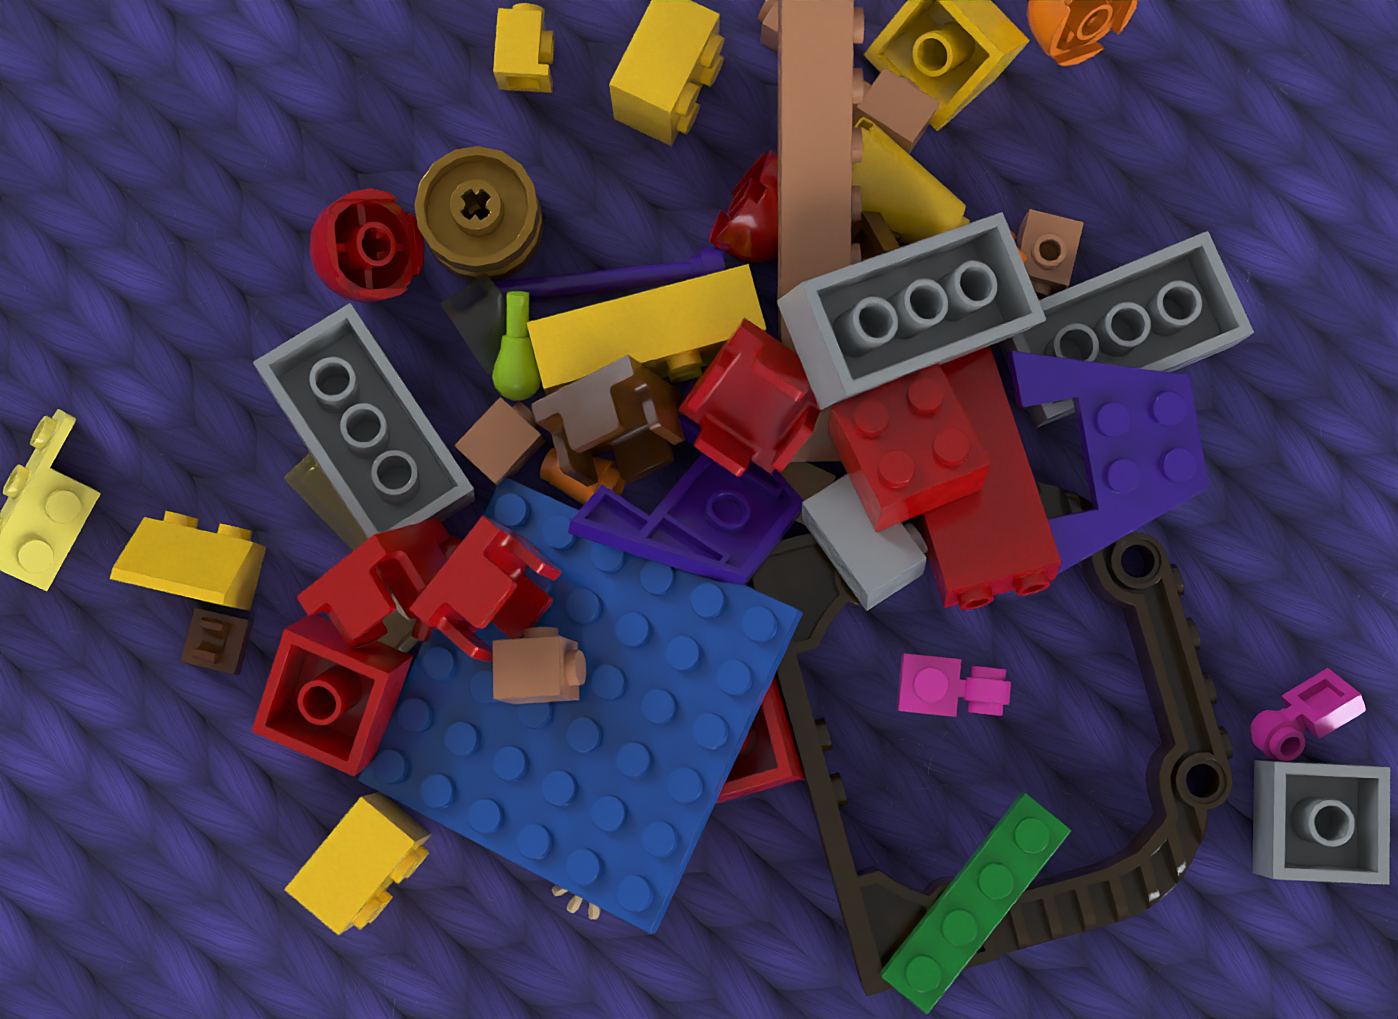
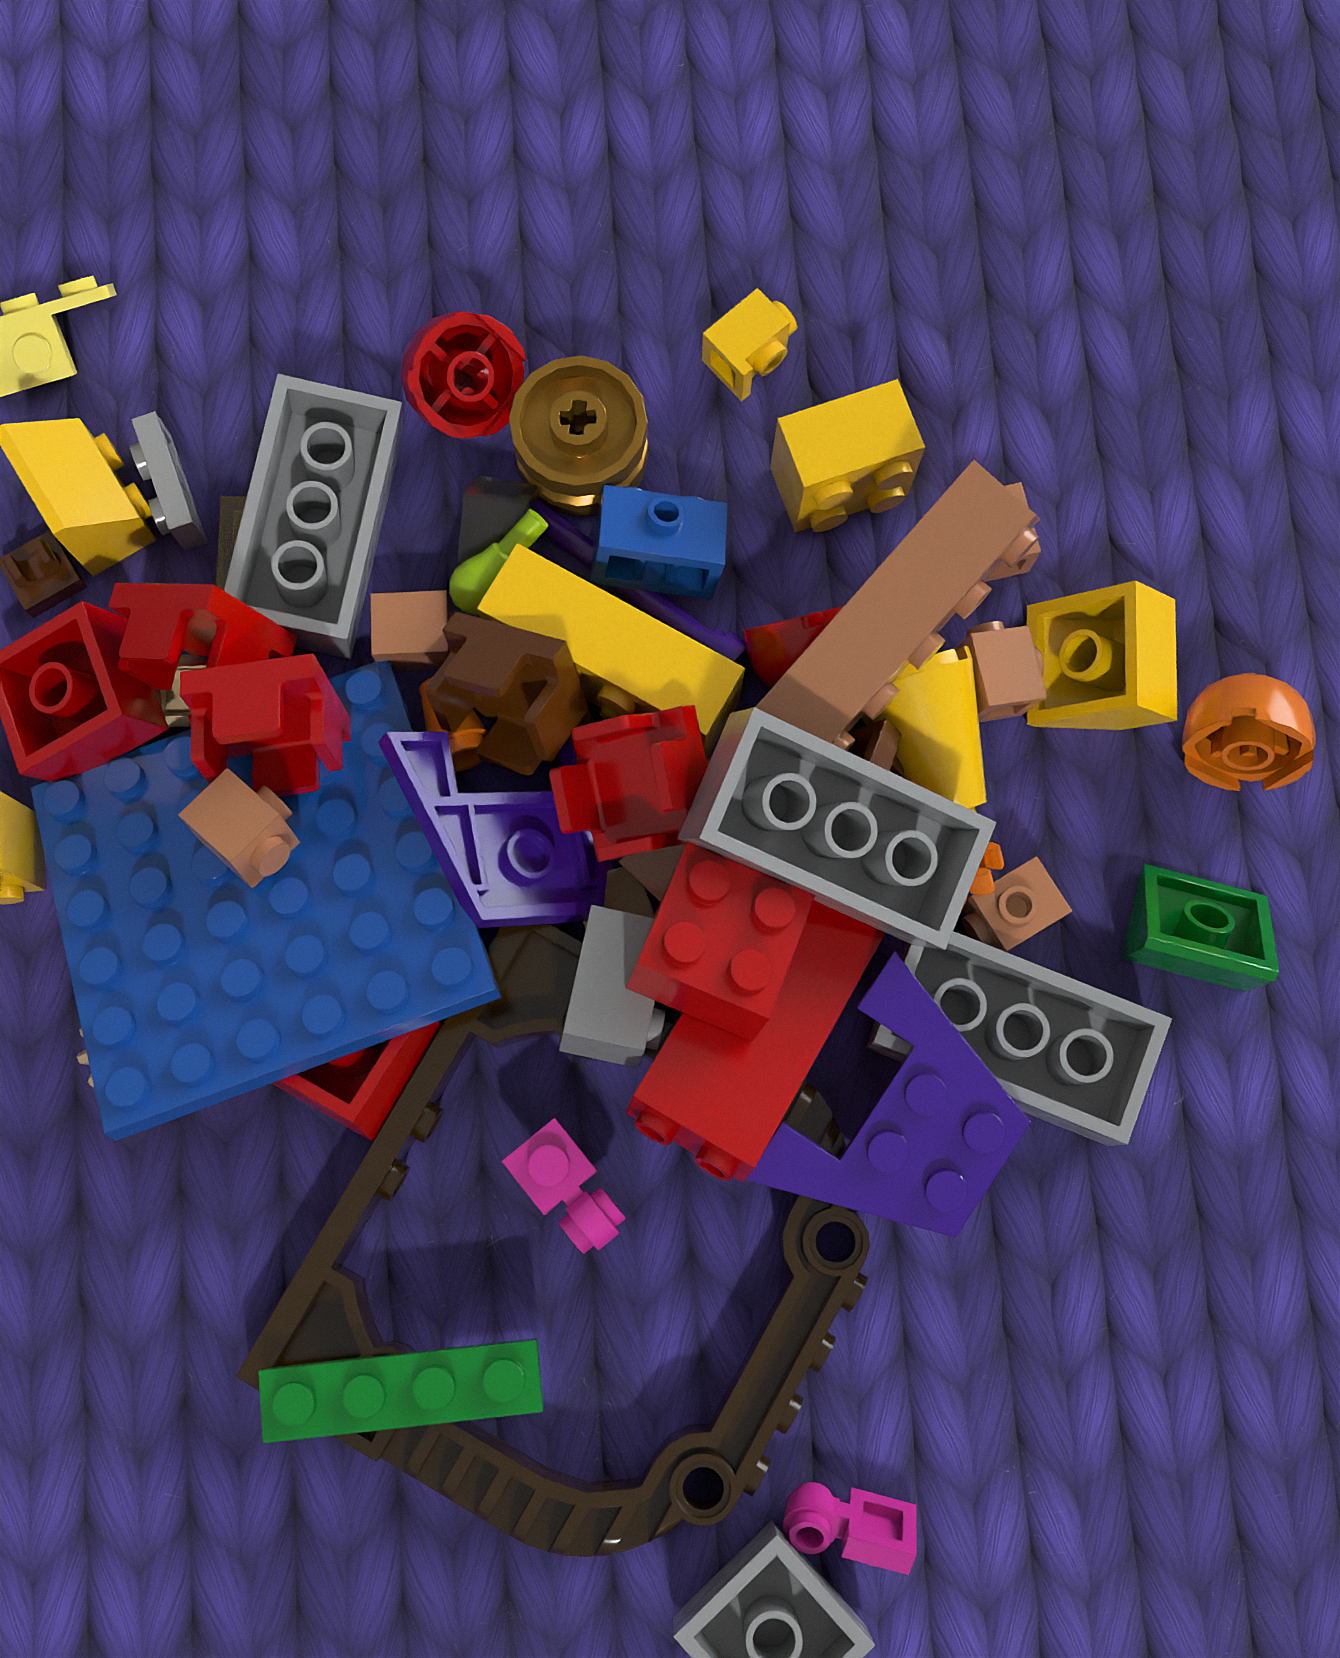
camera: 45 degrees right, 5 degrees down
(219, 494) = (158, 459): none -> light grey plate
(600, 235) = (659, 542): none -> blue brick
(1165, 158) = (1201, 930): none -> green slope

